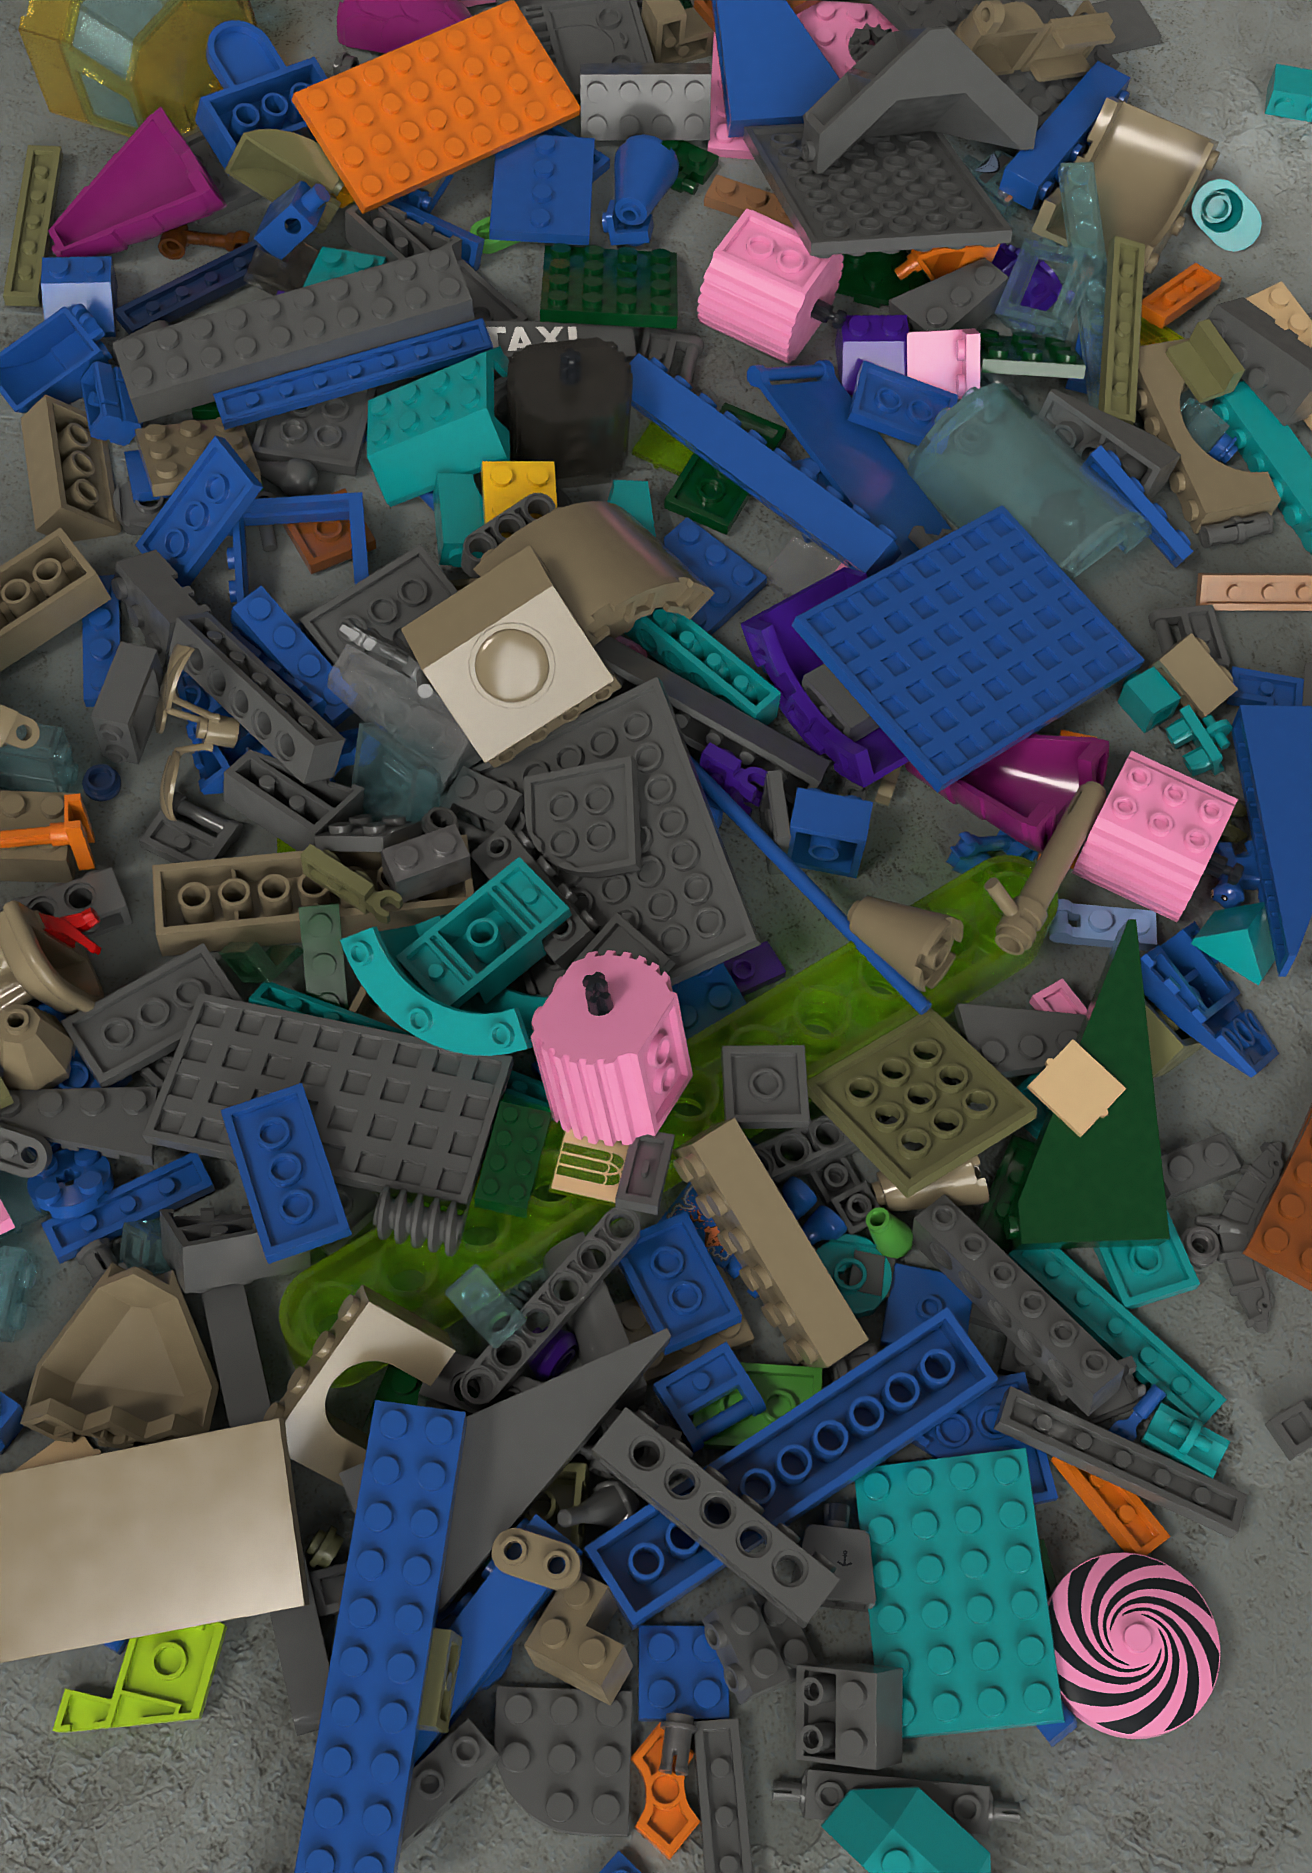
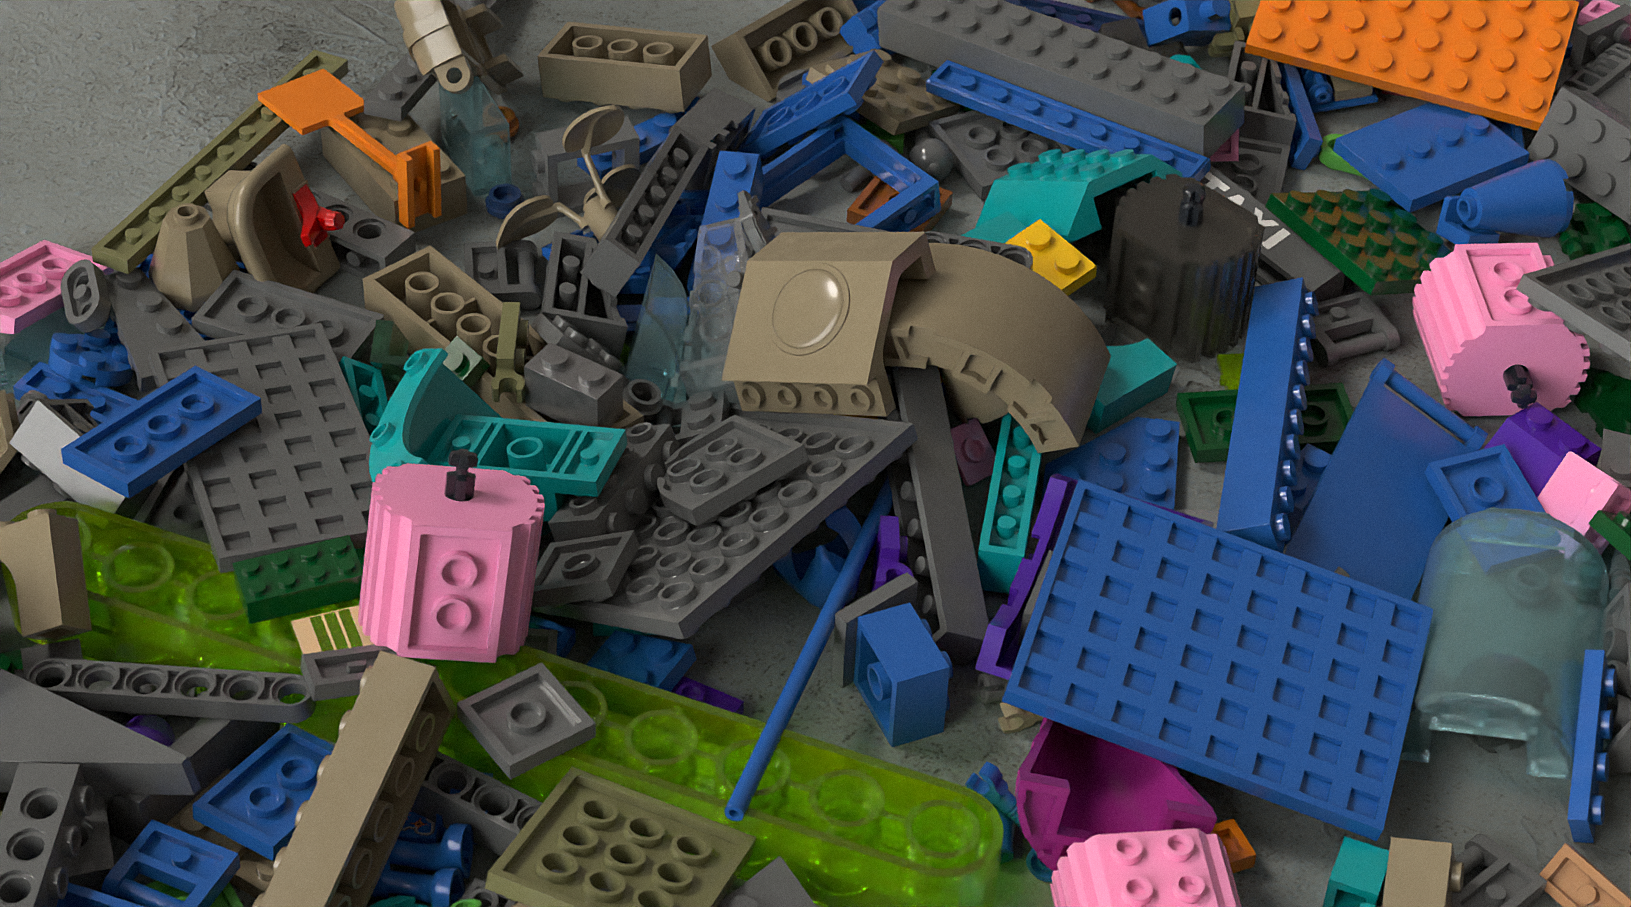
camera: 60 degrees right, 20 degrees down
(419, 1221) = (180, 539): dark grey piece -> none
(484, 1305) = (136, 631): clear light blue bracket -> none
(907, 938) = (789, 753): dark tan cone -> none
(1027, 912) = (925, 837): dark tan cylinder -> none

